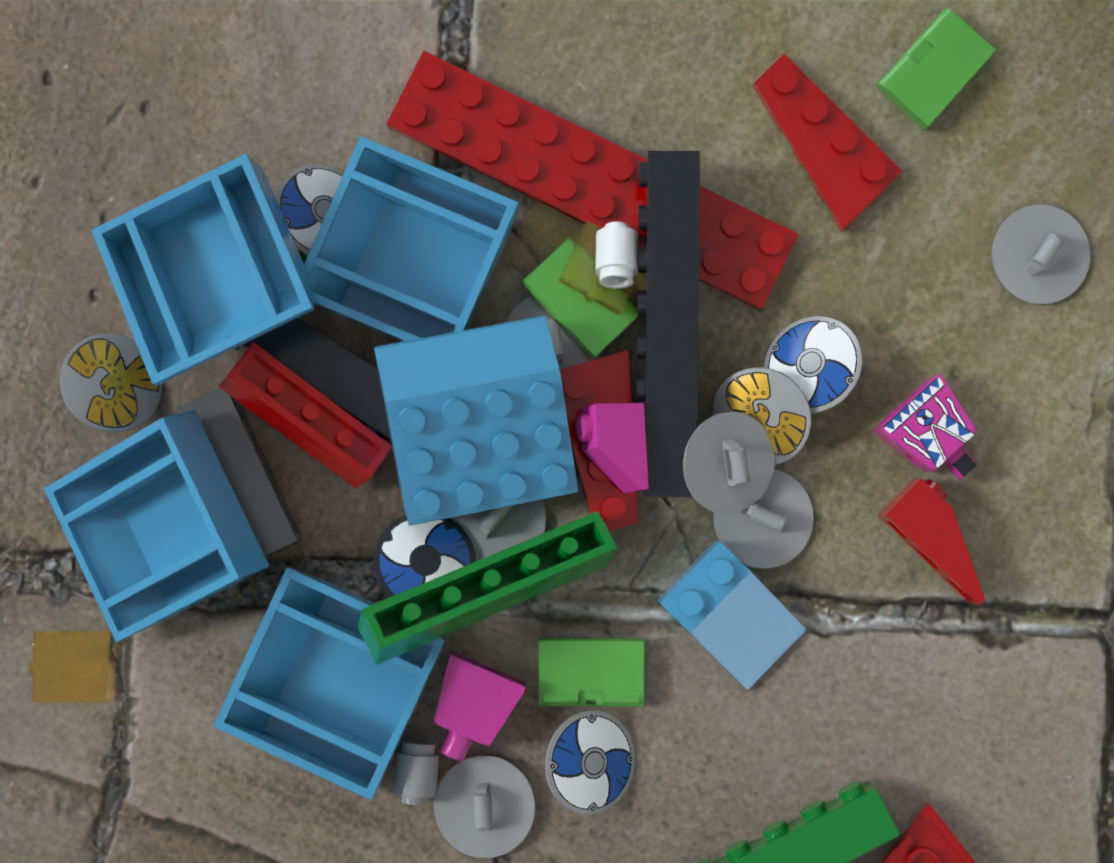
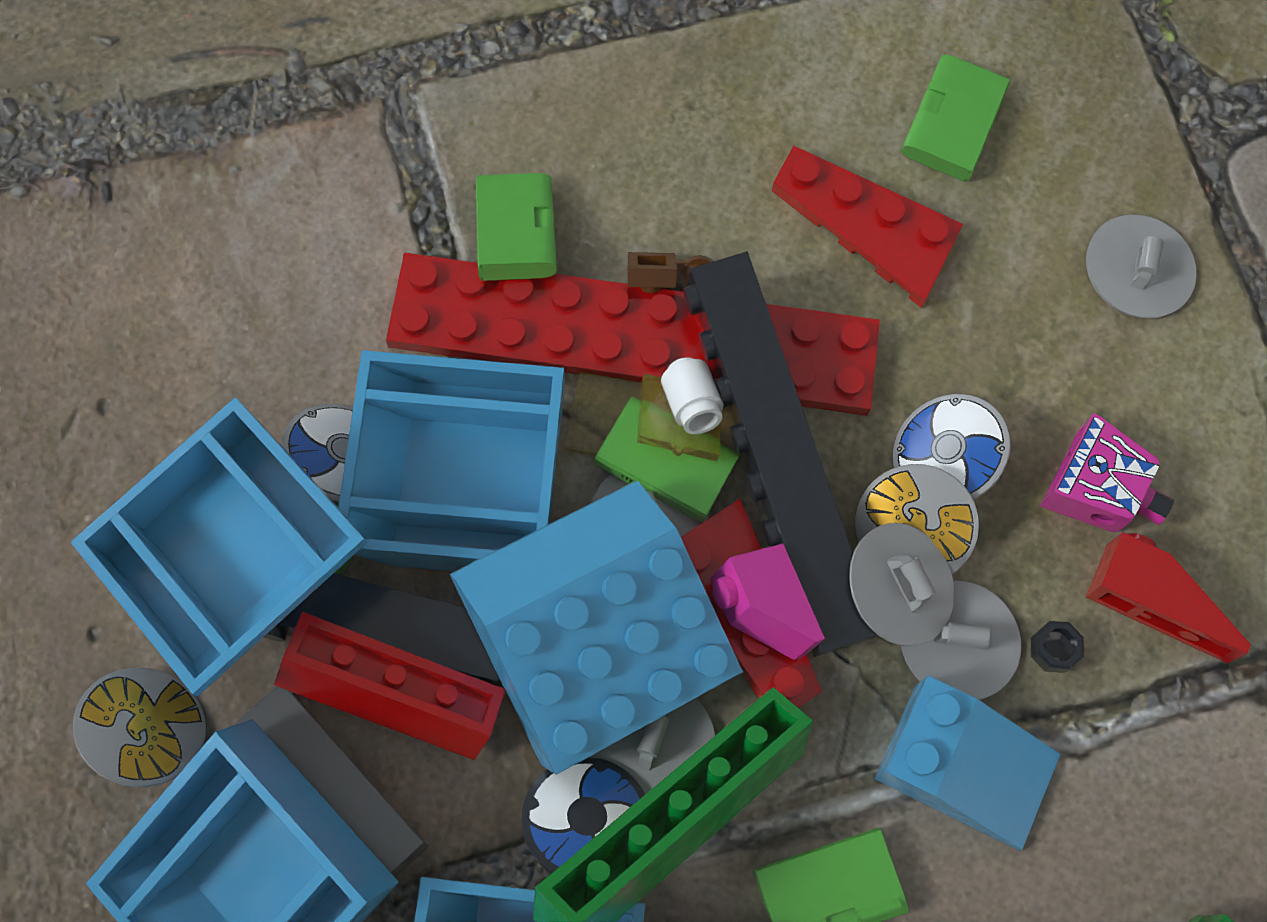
camera: 20 degrees left, 15 degrees down
(522, 56) = (515, 226): none -> bright green piece
(630, 132) = (660, 270): none -> reddish brown plate
(836, 548) = (1057, 647): none -> black tile

